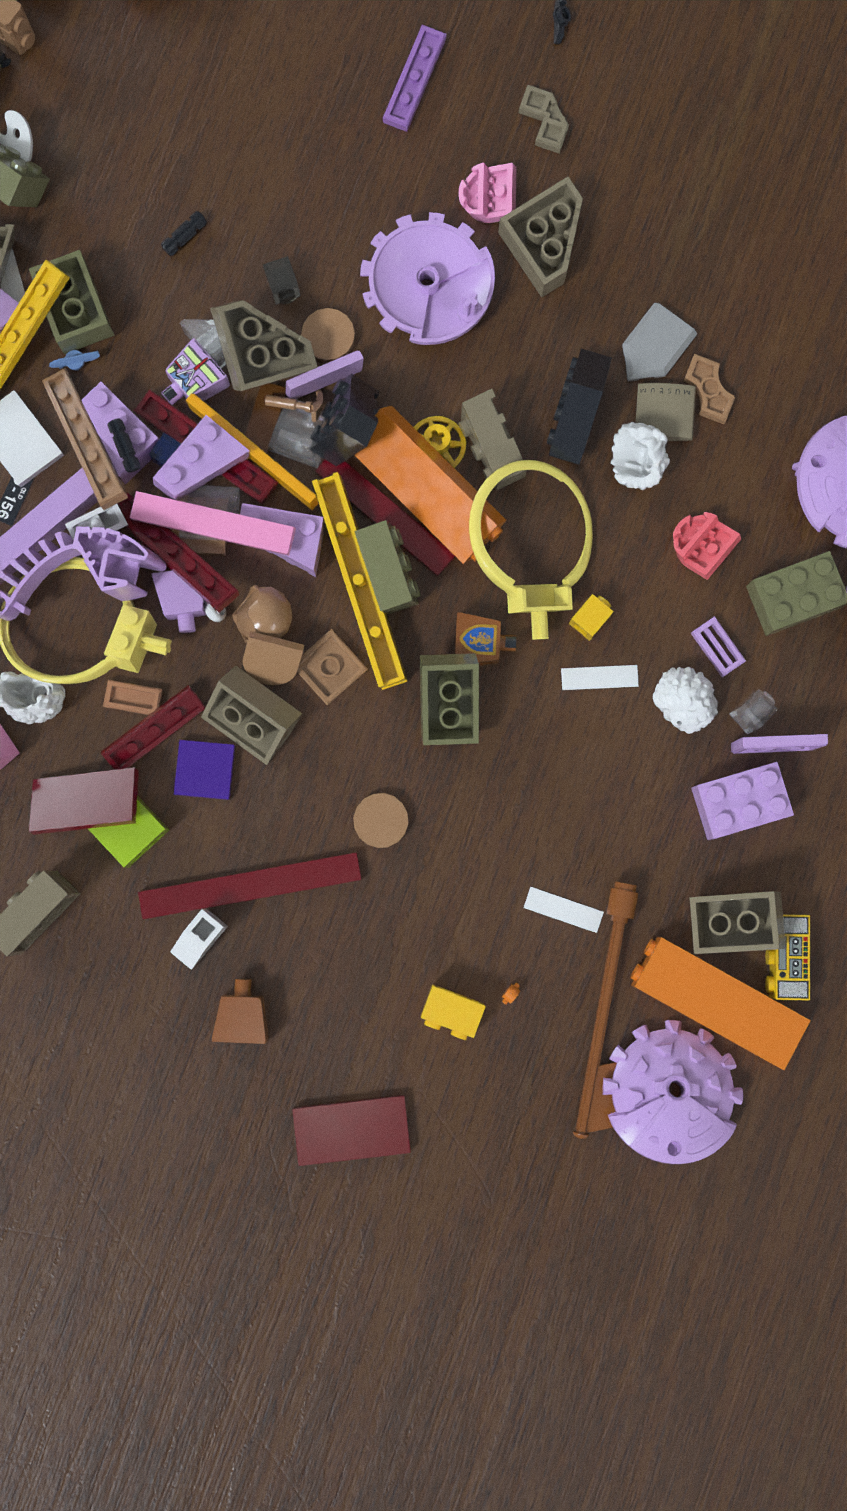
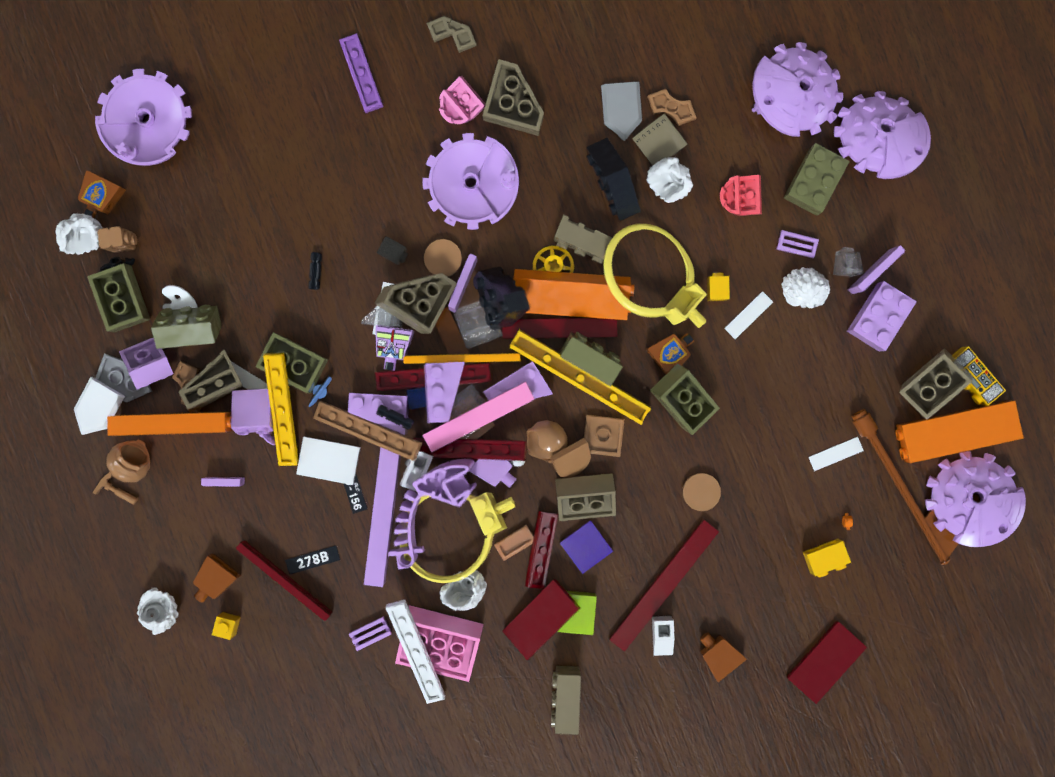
camera: 45 degrees left, 5 degrees up
(288, 403) = (460, 313): medium nougat piece -> none

